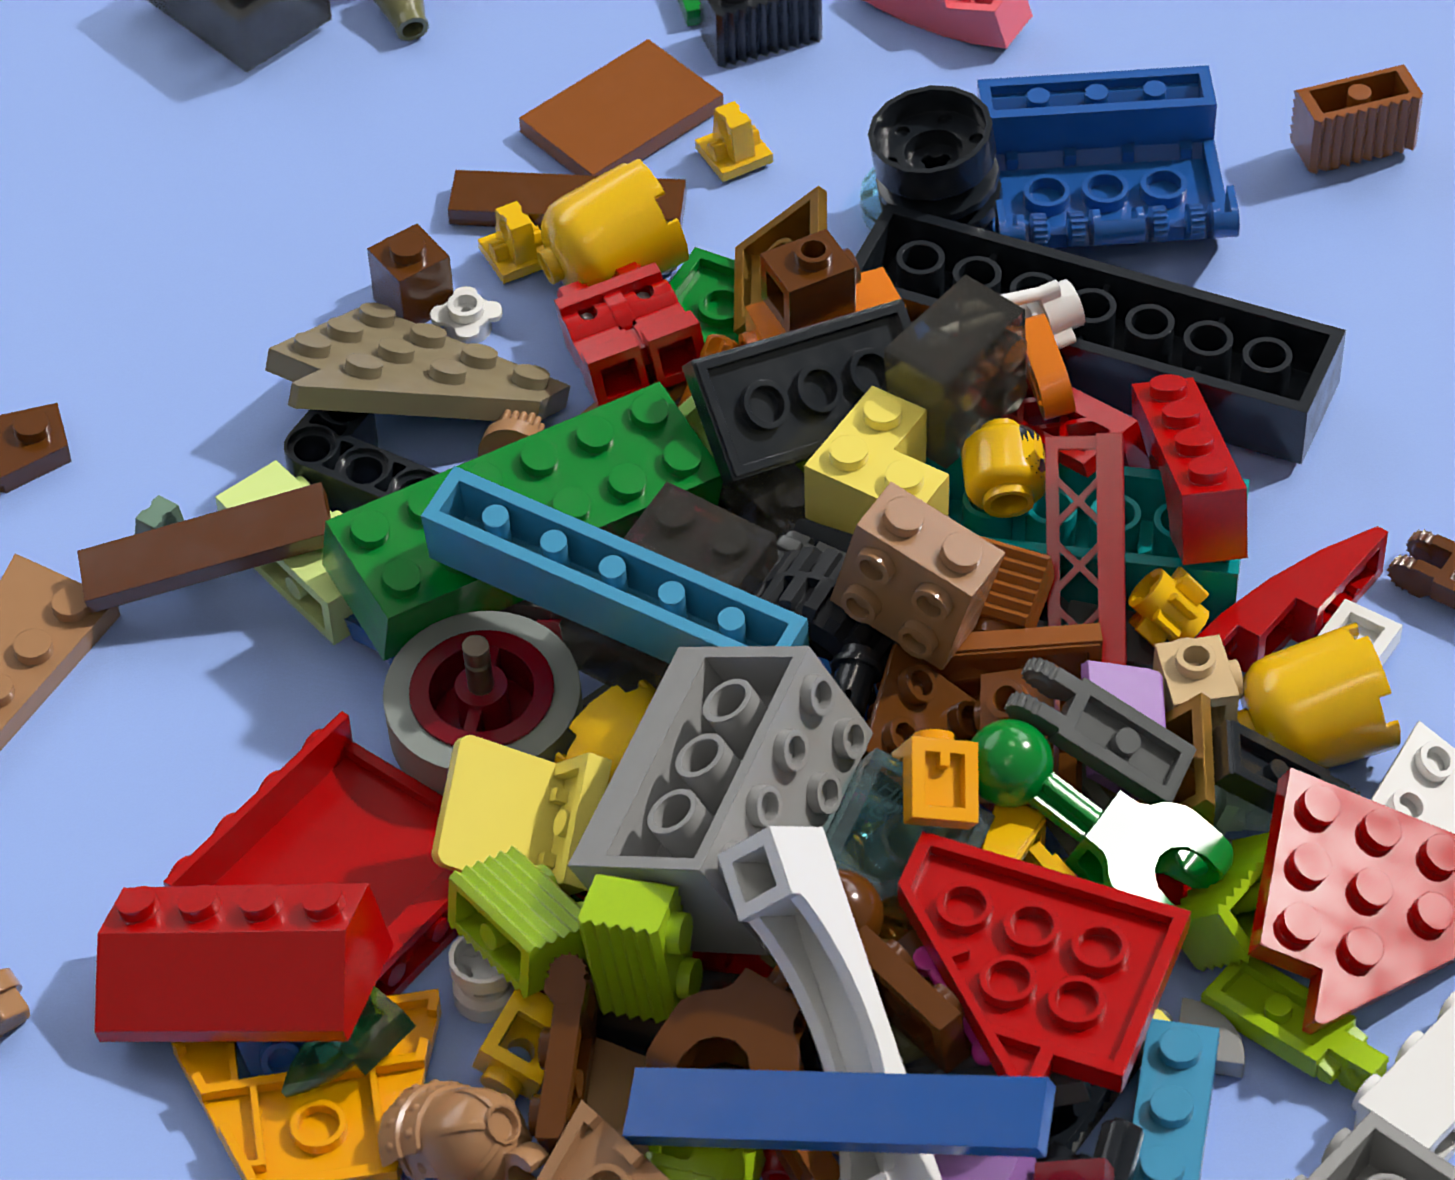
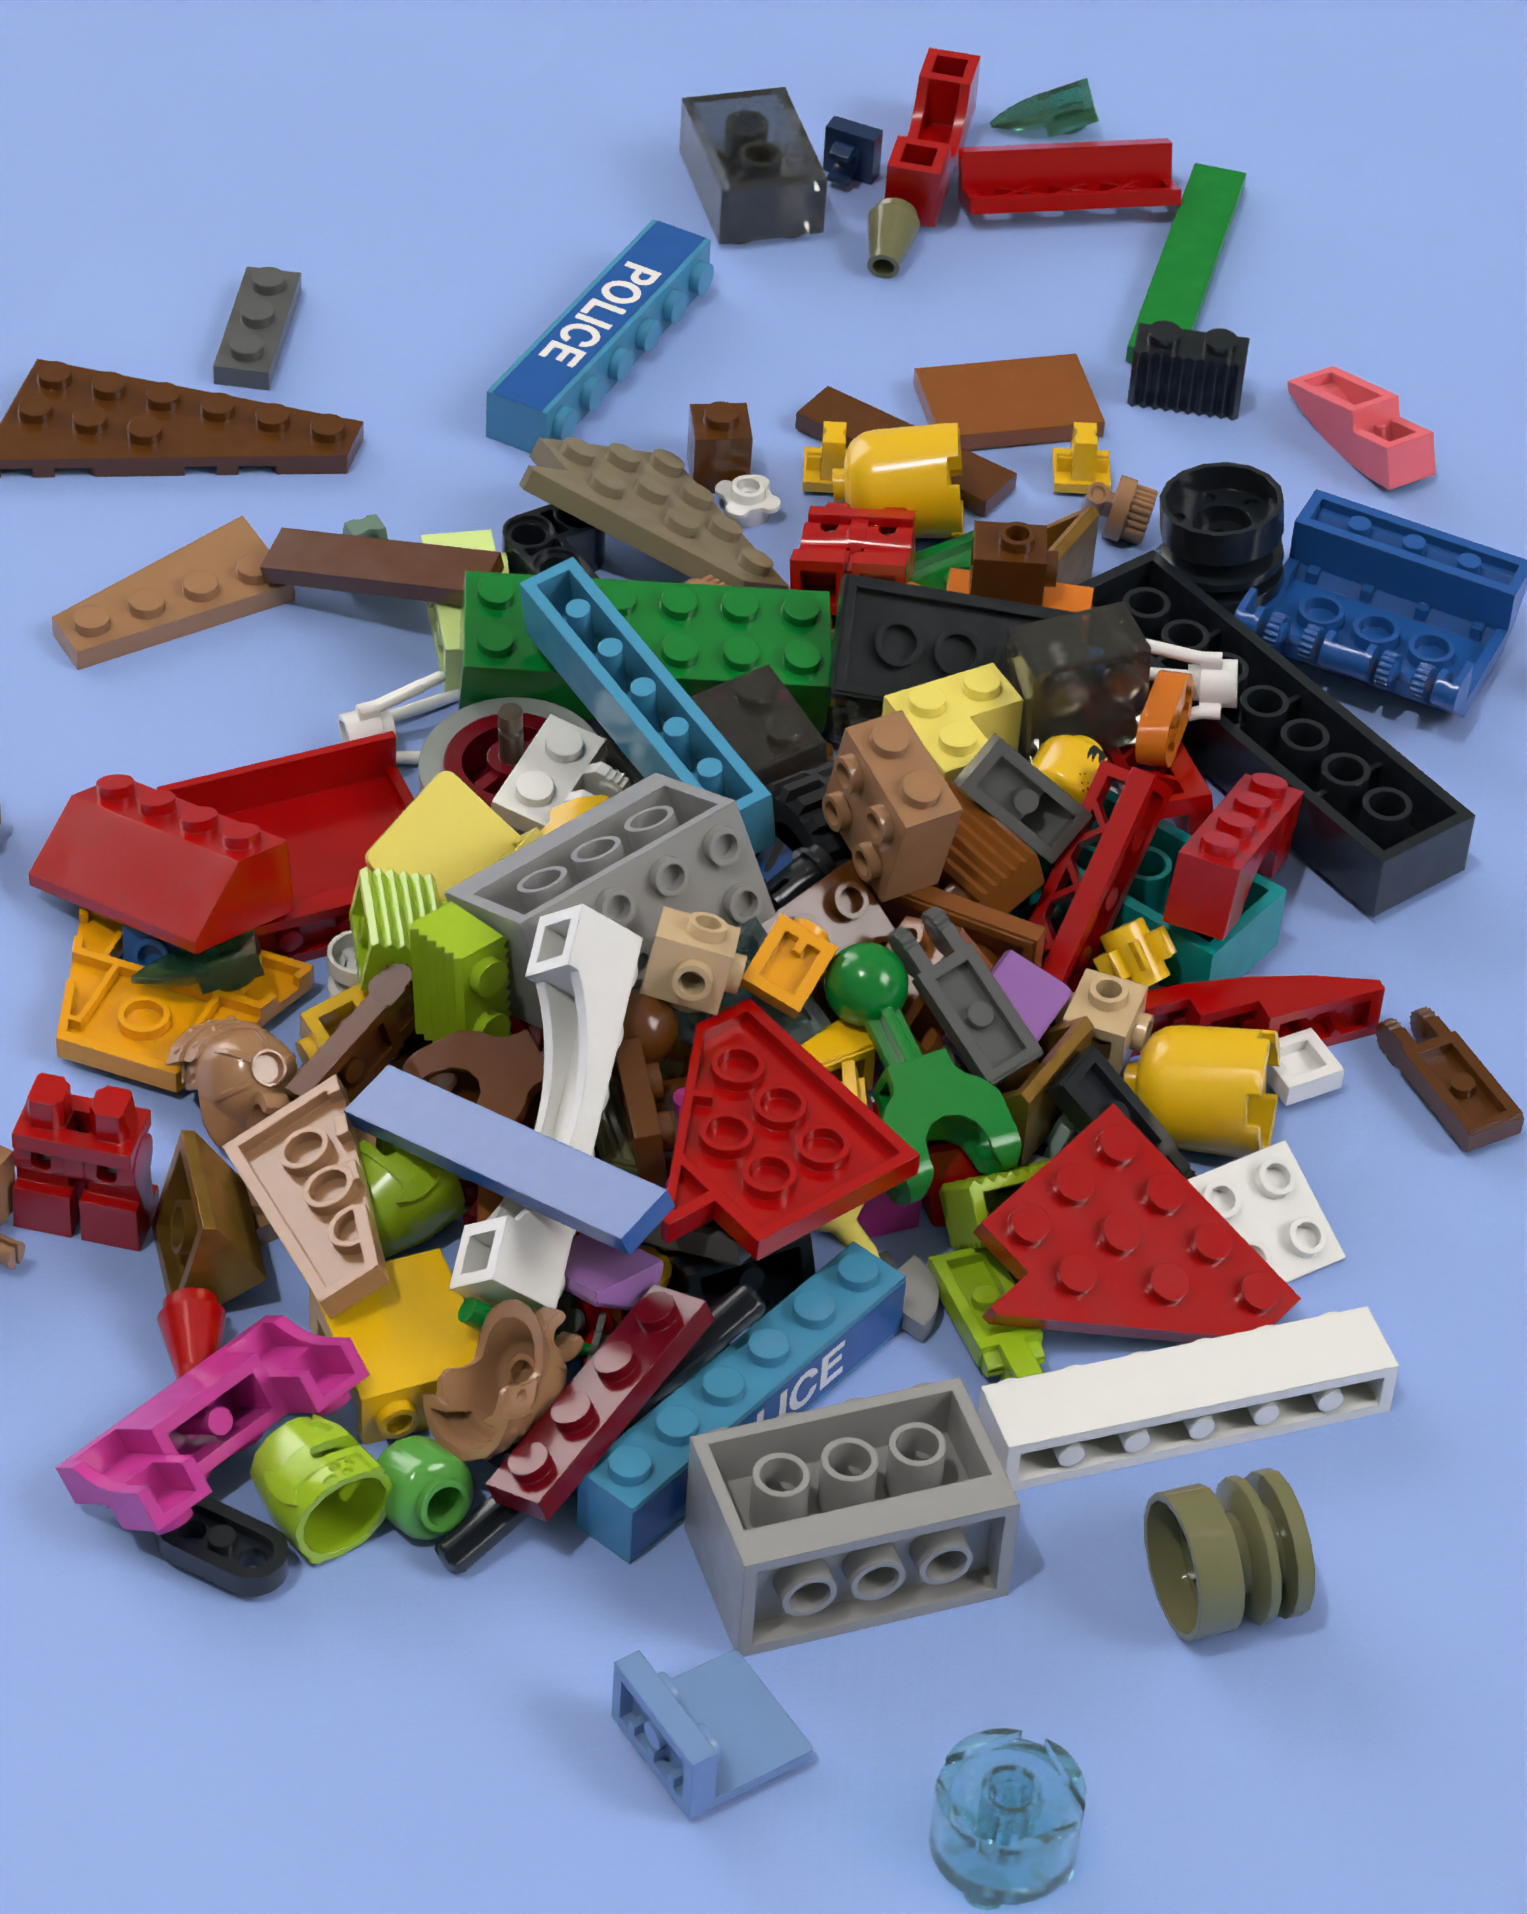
camera: 25 degrees right, 5 degrees down
(217, 219) = (599, 337): none -> brick
(309, 710) = (376, 718): none -> white plant
(537, 691) = (553, 772): none -> white hinge
(803, 169) = (1126, 509): none -> medium nougat piece
(866, 822) = (693, 961): none -> tan brick
(1001, 506) = (1023, 798): none -> dark grey slope

